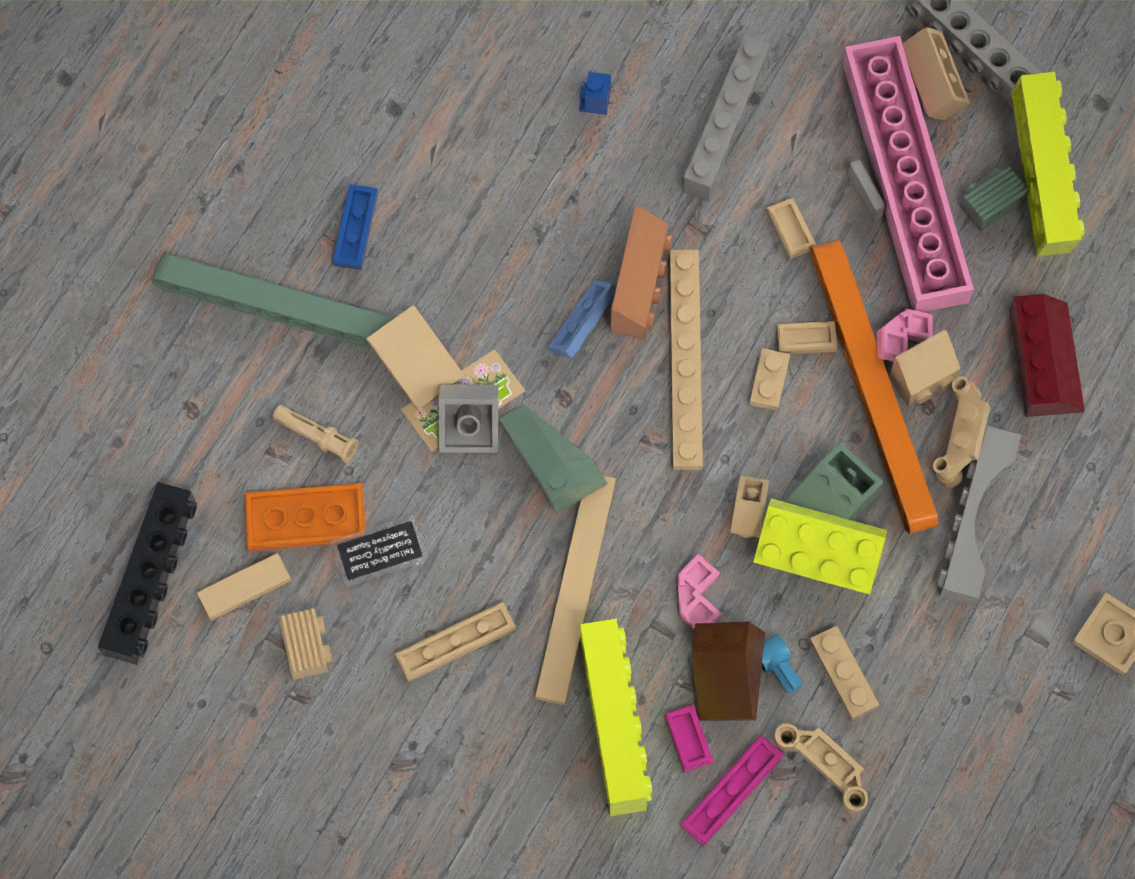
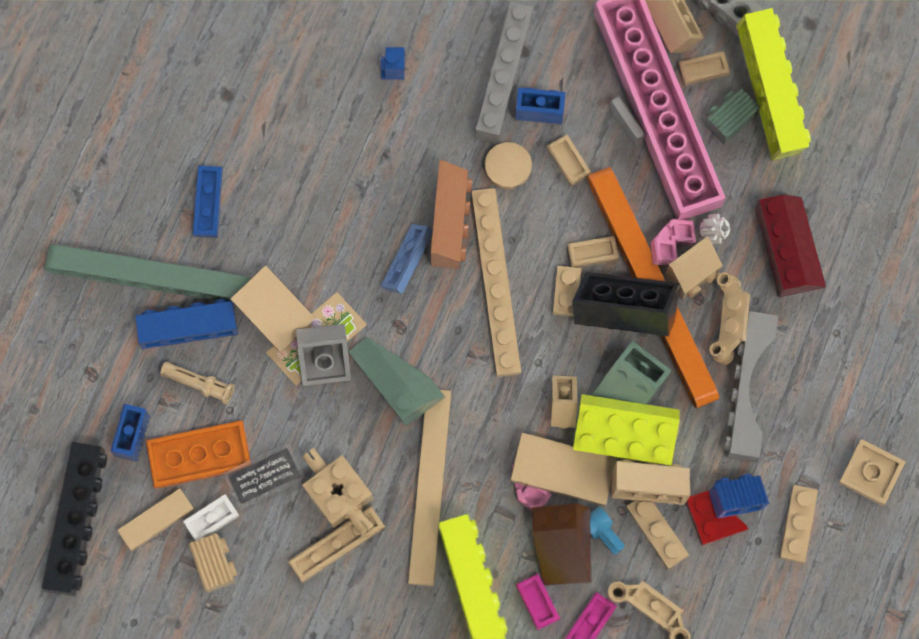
camera: 10 degrees left, 5 degrees up
(227, 480) = (130, 432): none -> blue brick
(310, 591) = (211, 518): none -> white plate
(311, 364) = (186, 324): none -> blue brick
(466, 560) = (335, 507): none -> tan brick
(717, 226) = (508, 165): none -> tan tile
(738, 585) = (562, 470): none -> tan tile
(764, 160) = (540, 105): none -> blue brick
(838, 399) = (626, 303): none -> black slope
(842, 612) = (650, 482): none -> tan brick
(914, 666) = (707, 524): none -> red wing
(947, 641) = (738, 496): none -> blue brick
(958, 325) = (715, 228): none -> white gear
(967, 140) = (704, 68): none -> tan tile
(1017, 685) = (798, 524): none -> tan plate

